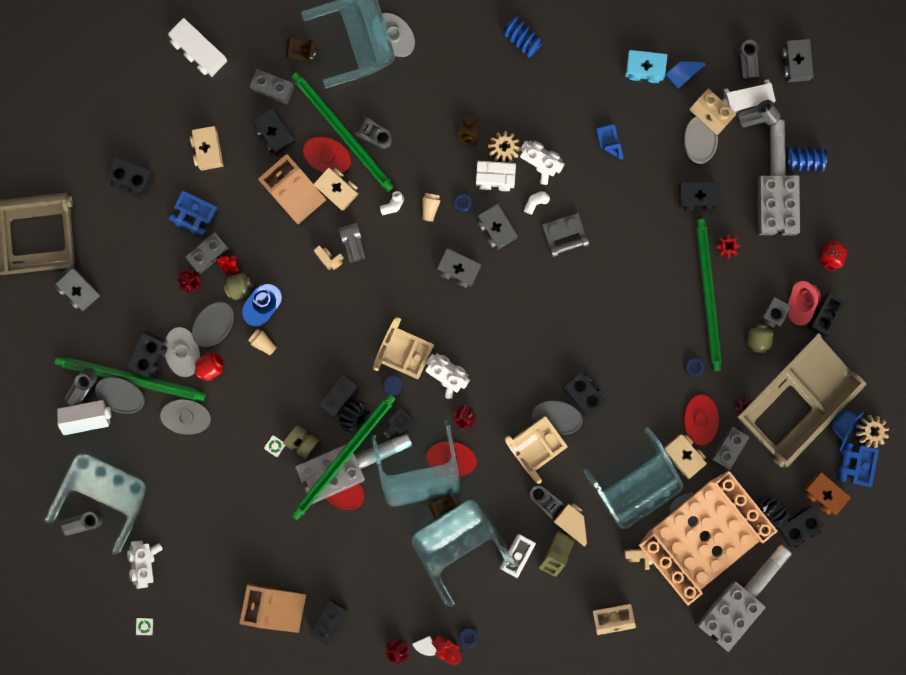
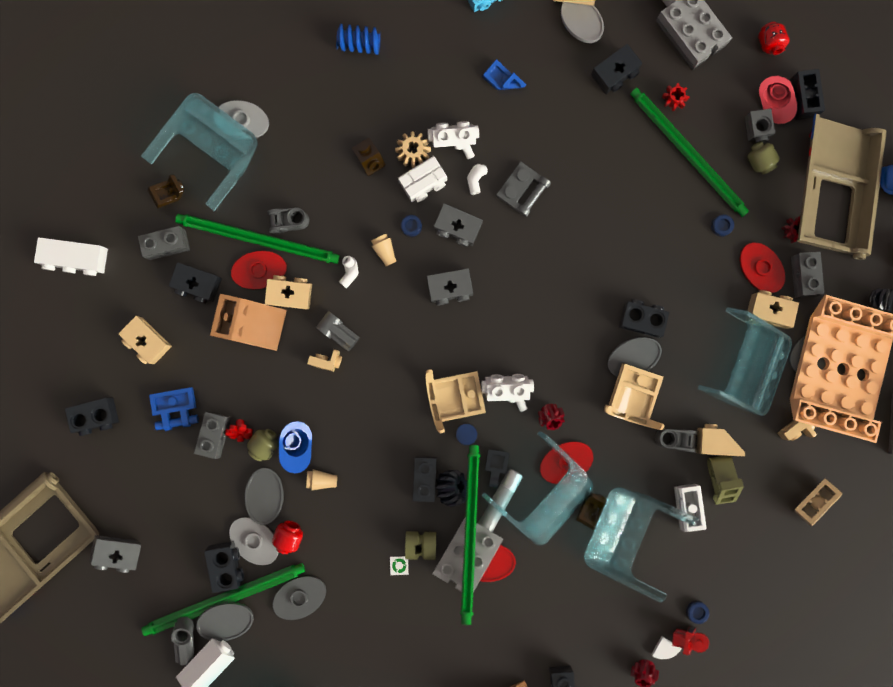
camera: 30 degrees left, 0 degrees up
(189, 280) = (213, 472): dark red gear -> none

